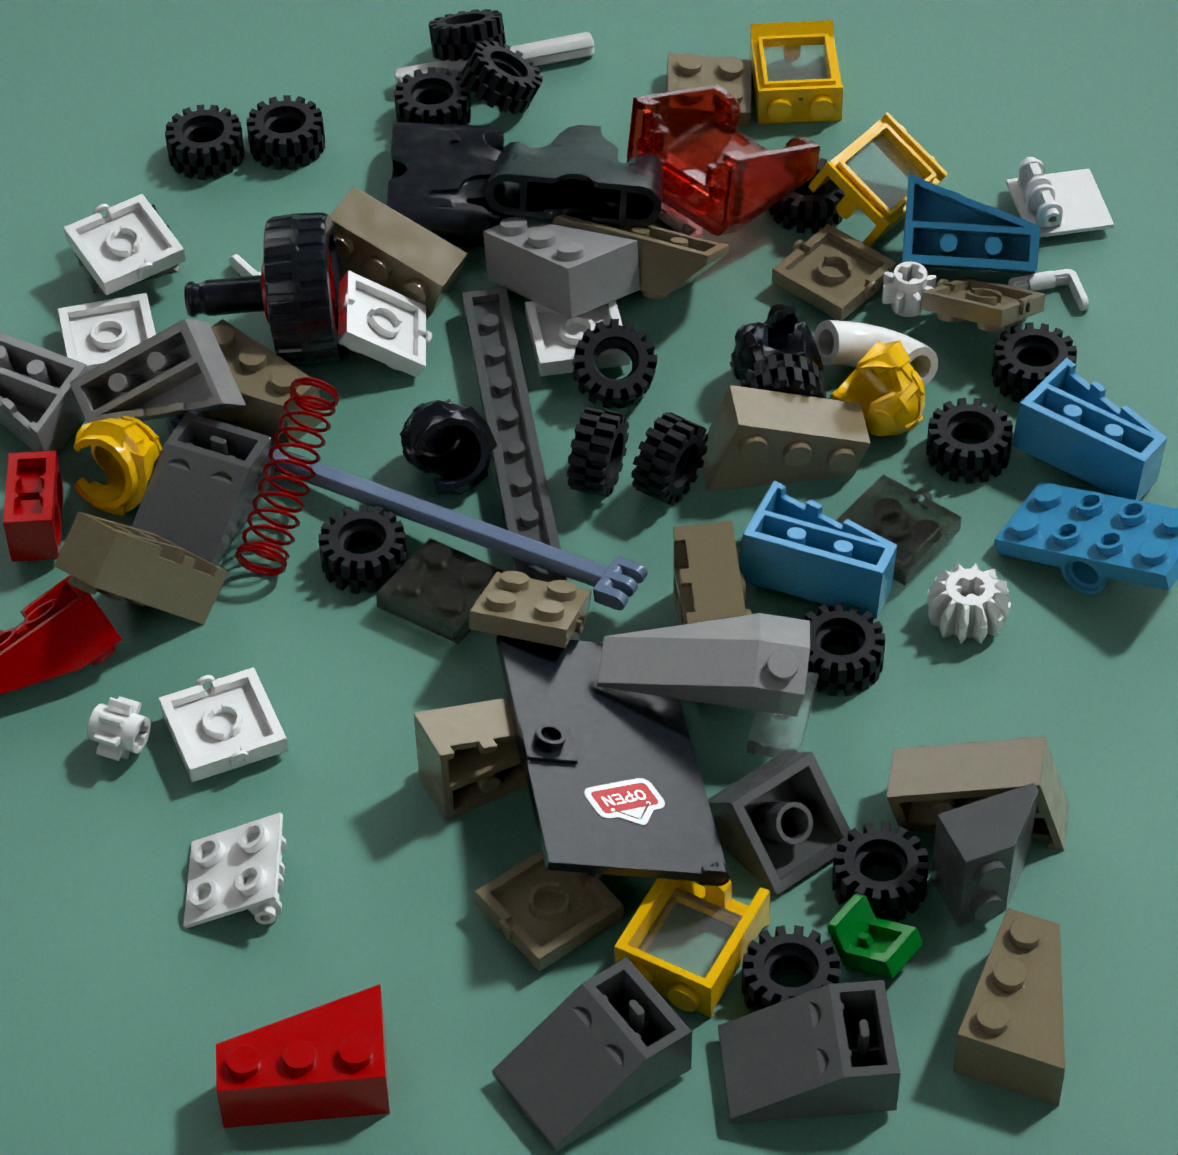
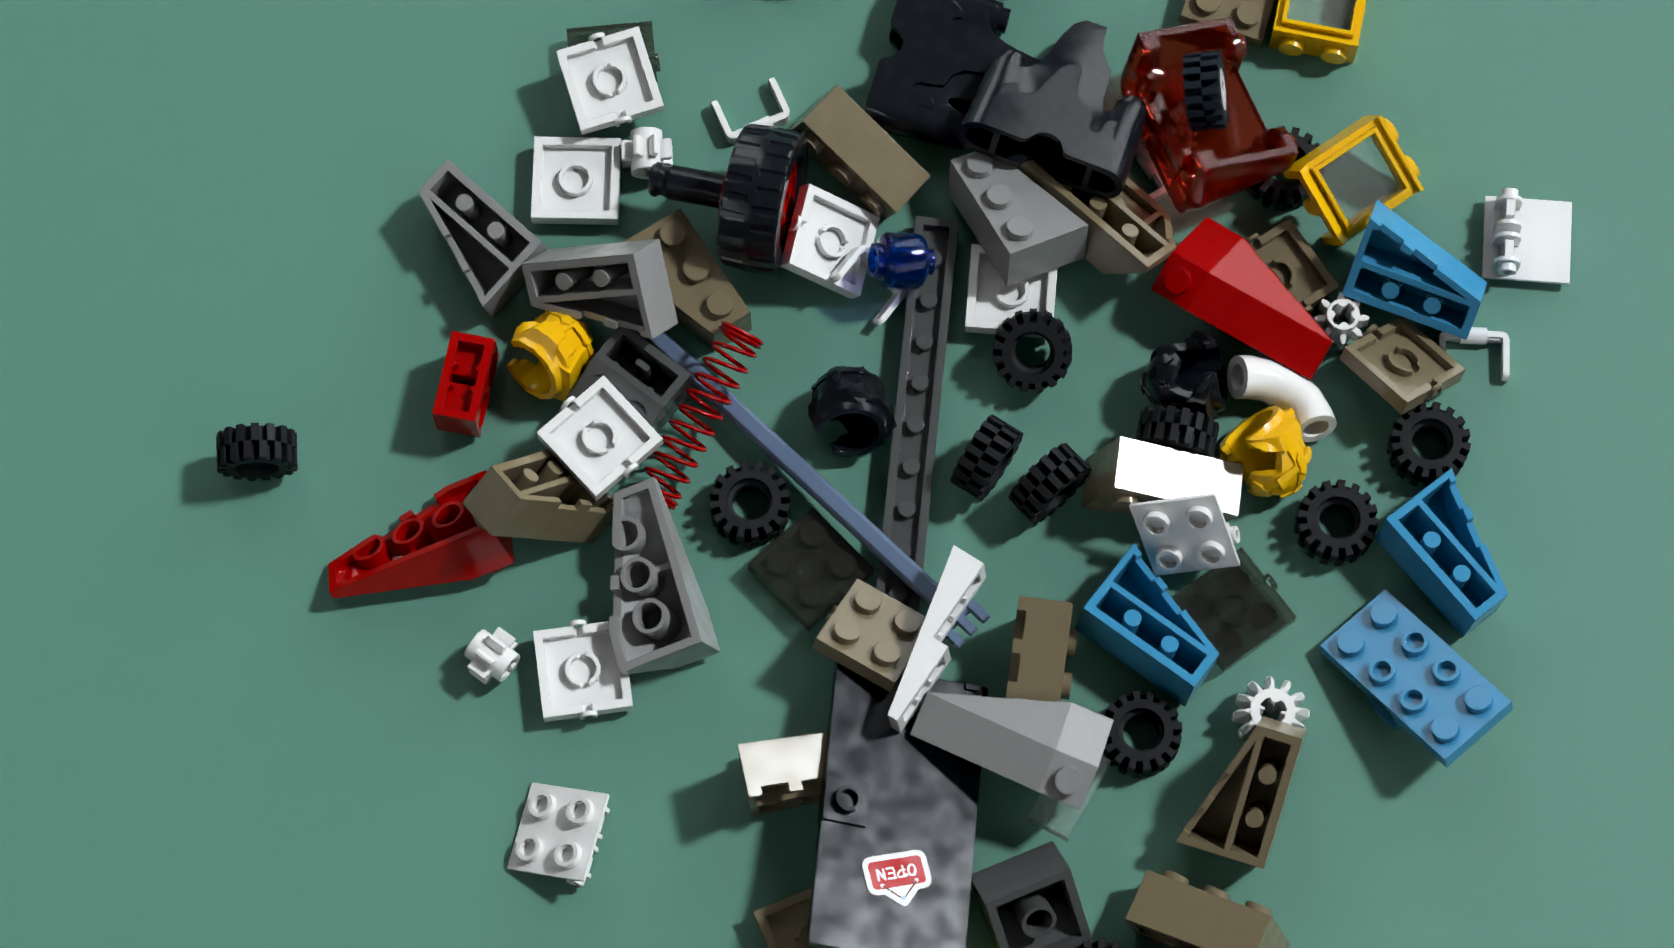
camera: 15 degrees right, 25 degrees up
(168, 297) = (644, 150): none -> white gear
(188, 503) = (599, 437): none -> white plate
(282, 634) = (656, 598): none -> light grey wedge
(439, 340) = (846, 264): none -> white piece
(459, 315) = (901, 260): none -> clear blue head
(596, 600) = (930, 656): none -> white slope
(711, 127) = (1205, 91): none -> black wheel
(822, 286) = (1231, 288): none -> red wedge
(824, 459) = (1186, 534): none -> white hinge
(976, 661) = (1248, 798): none -> dark tan wedge

